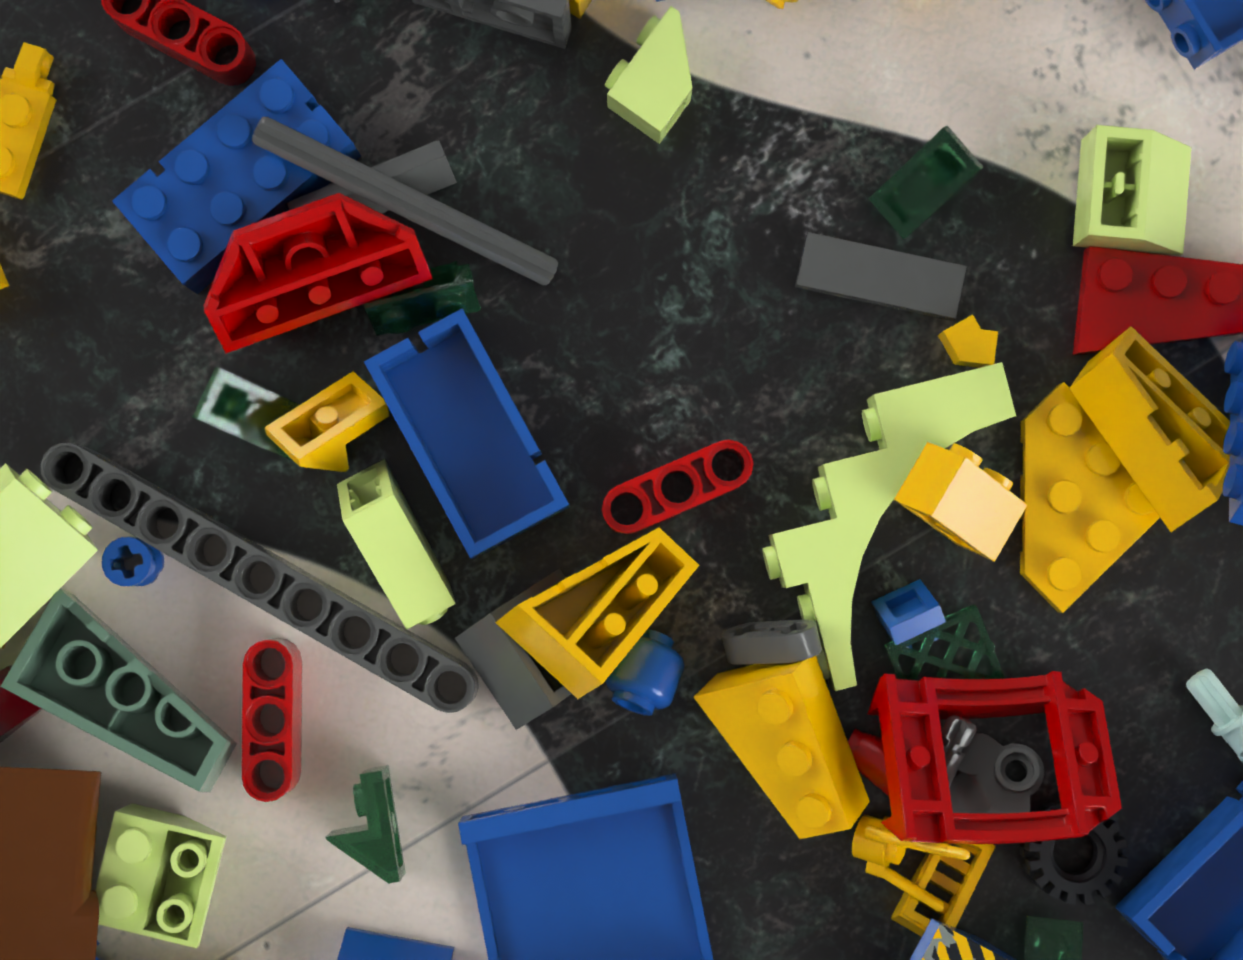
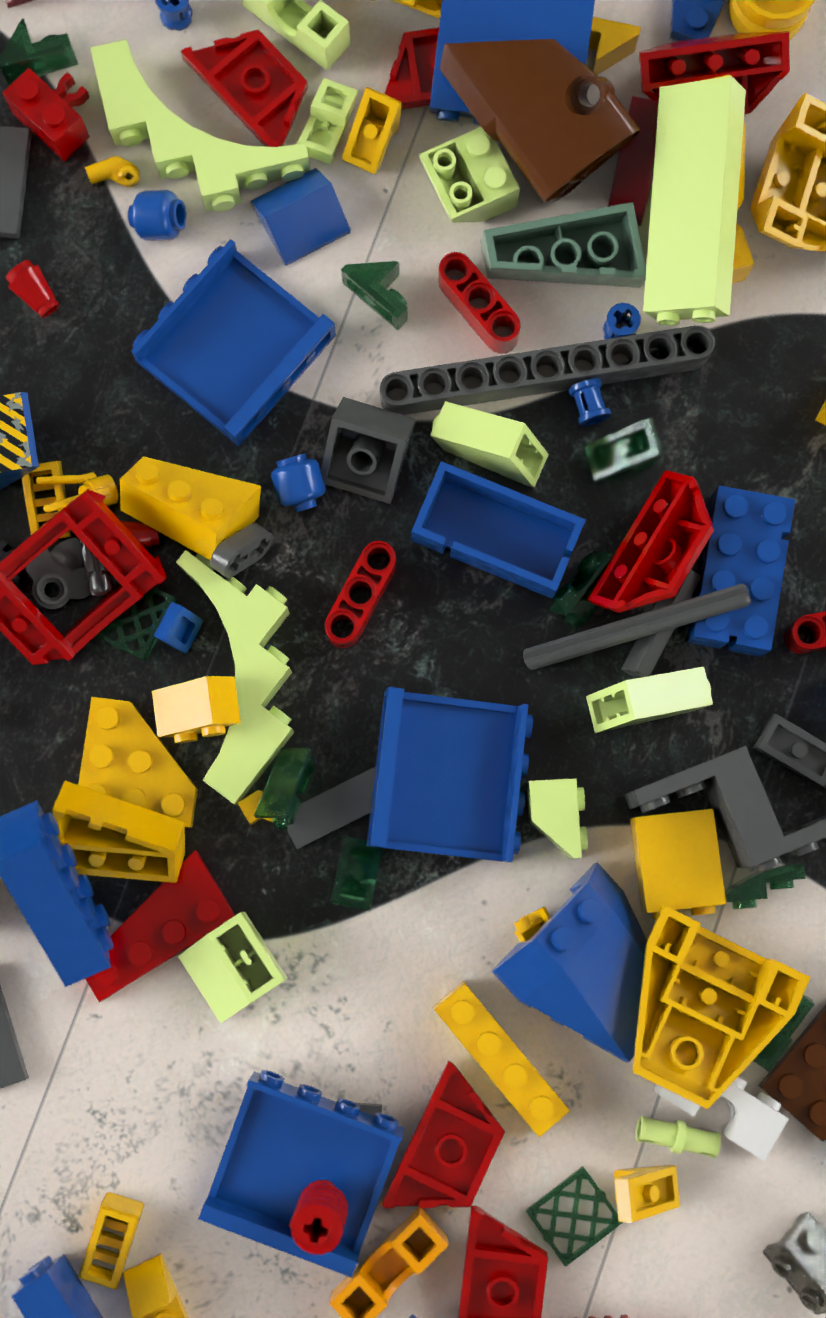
camera: 140 degrees right, 5 degrees down
(243, 502) = (589, 402): none -> blue bush
(323, 425) = (580, 469): yellow slope -> none
(459, 115) = (649, 699): none -> yellowish green slope
(600, 613) = (346, 487): yellow wedge -> none
(739, 211) = (449, 776): none -> blue panel
(924, 345) = (287, 777): none -> clear green hinge

